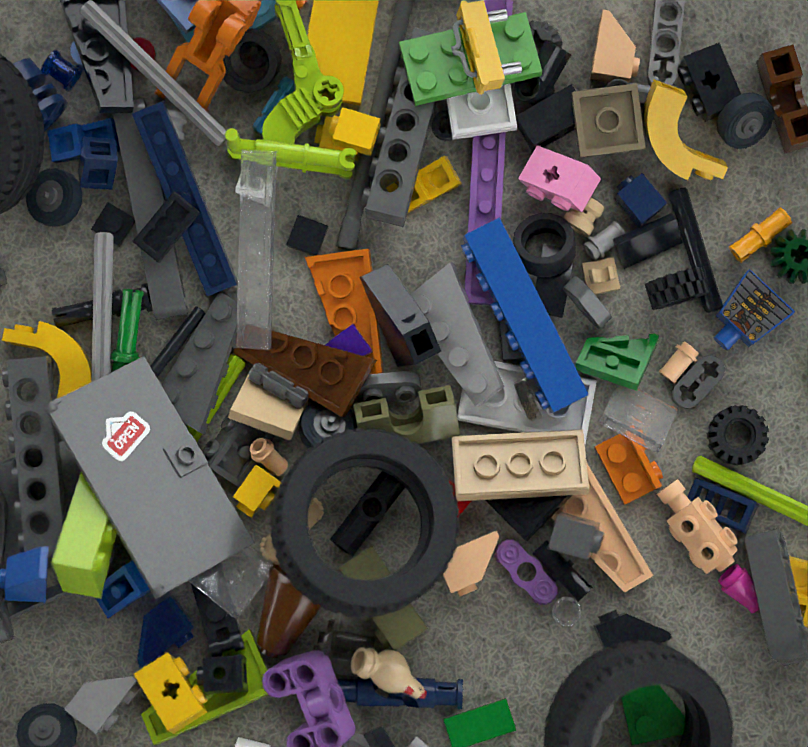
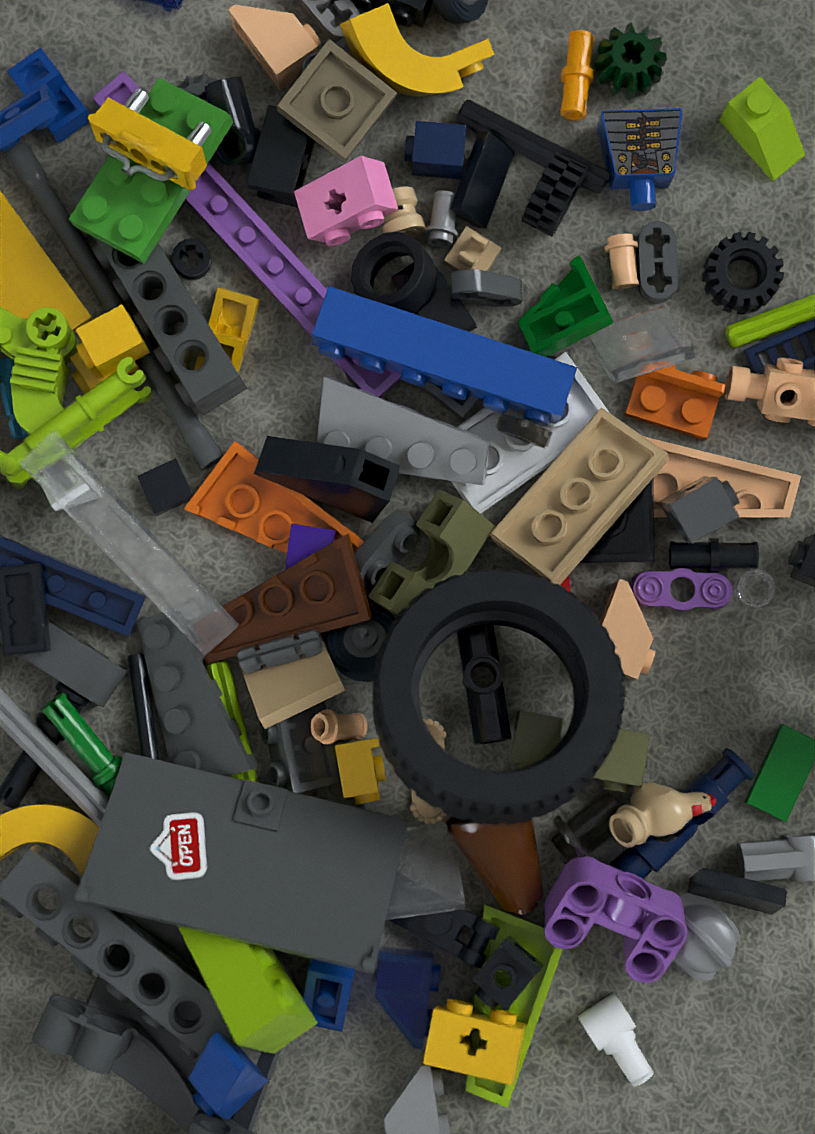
camera: 45 degrees left, 0 degrees up
(482, 114) = (213, 210): white plate -> none

